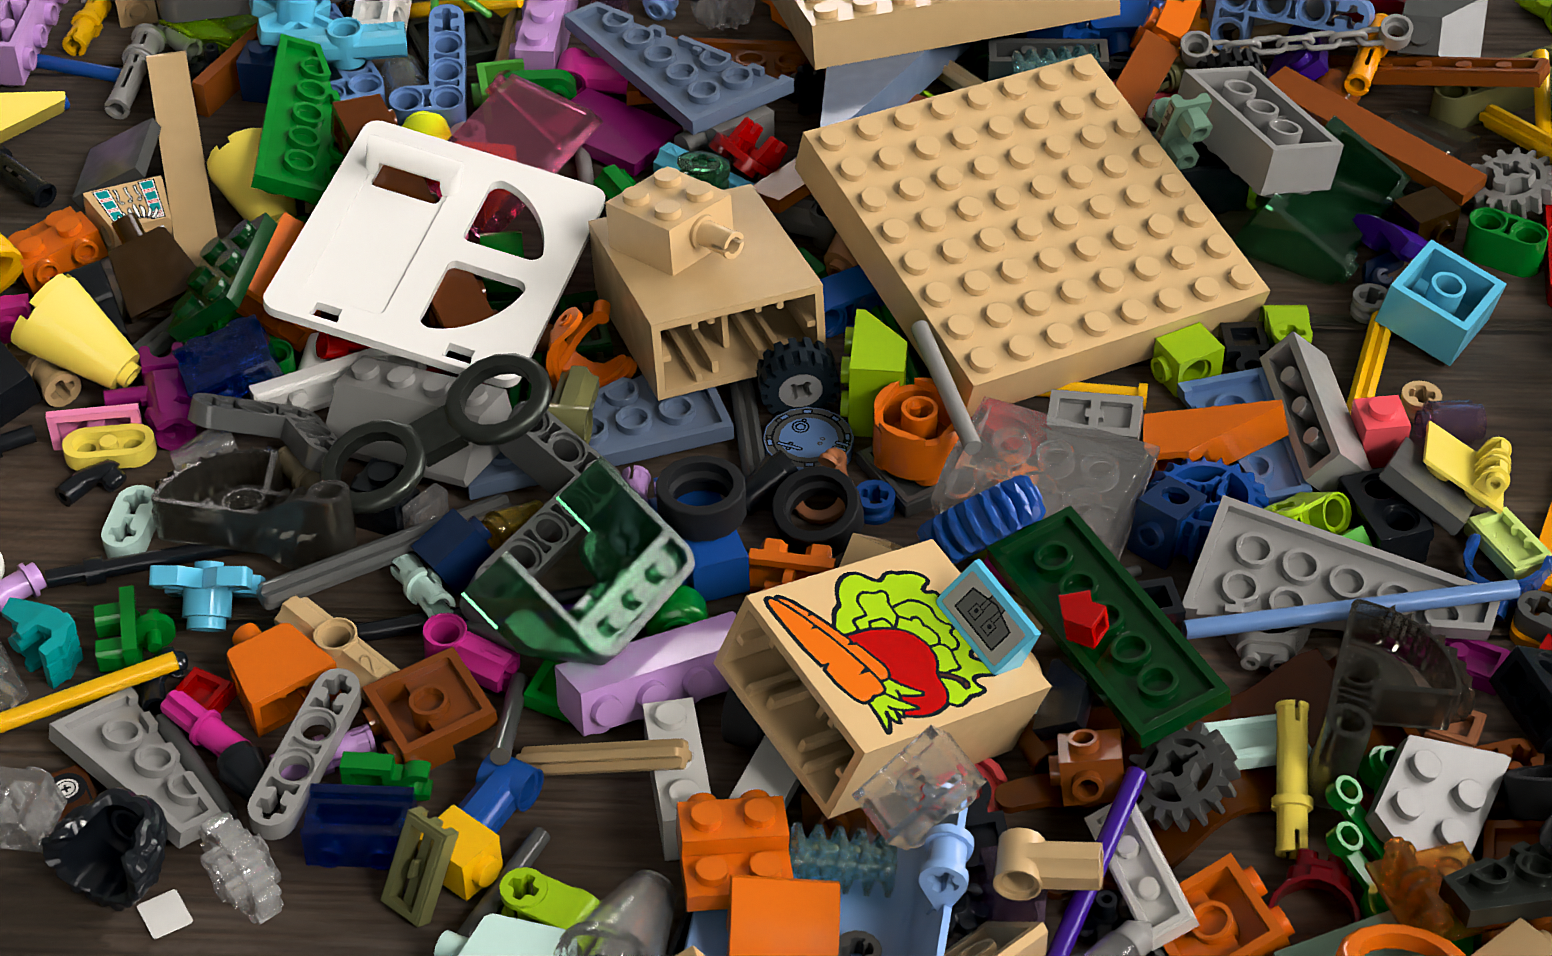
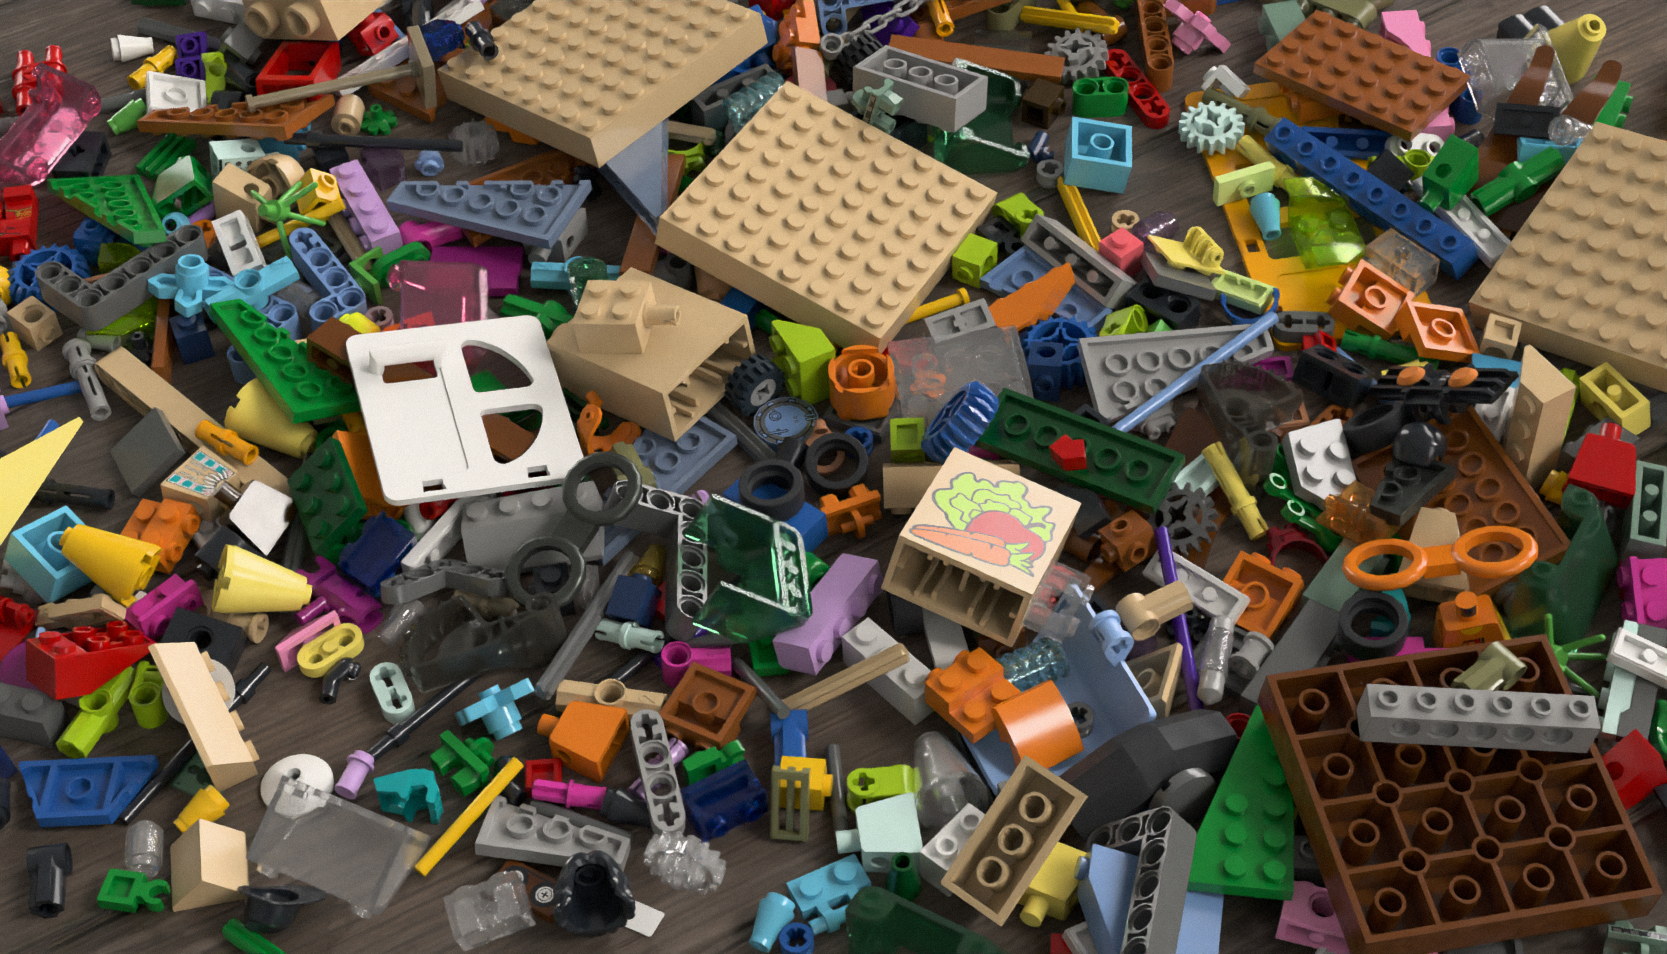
camera: 30 degrees left, 5 degrees up
(188, 183) = (213, 434): none -> light orange pin
(747, 156) = (583, 246): red plate -> none
(914, 509) = (906, 440): none -> lime brick
(946, 388) = (868, 347): light grey bar -> none
(988, 619) = (1028, 479): slope -> none
(1381, 235) = (1030, 124): dark purple slope -> none

